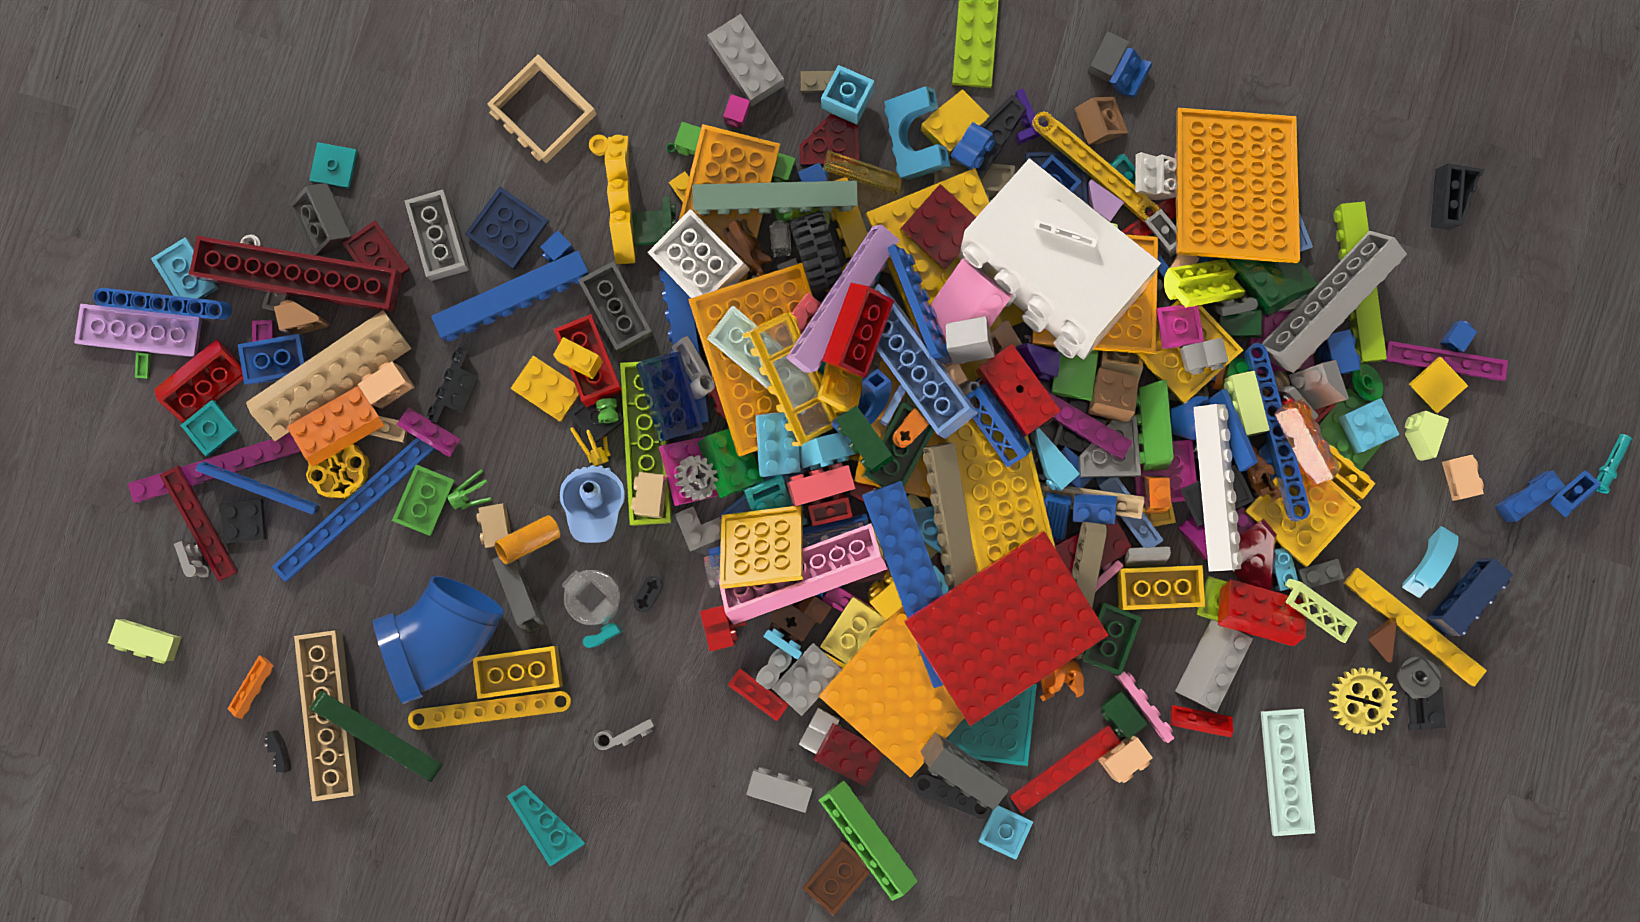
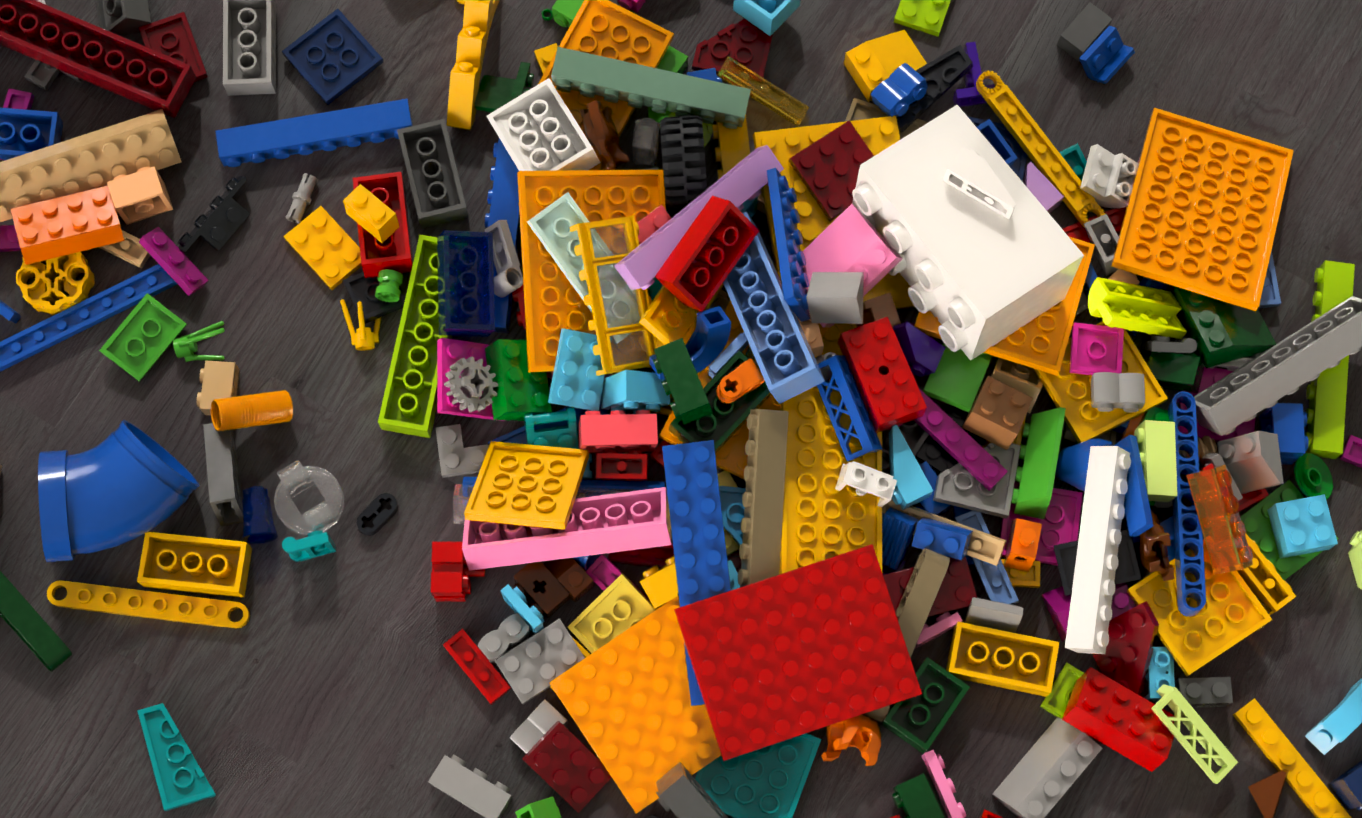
camera: 15 degrees right, 10 degrees down
(296, 319) = (60, 95): medium nougat slope -> none
(515, 353) = (301, 198): none -> light grey pin
(555, 620) = (257, 516): none -> clear blue plant
(556, 247) = (382, 89): blue brick -> none
(592, 503) = (340, 387): light blue piece -> none
(625, 737) = (303, 676): light grey plate -> none
(649, 495) = (410, 389): tan brick -> none
(900, 114) = (824, 37): dark azure arch -> none
(1027, 481) = (867, 481): none -> white window
(1100, 120) = (1059, 100): medium nougat slope -> none

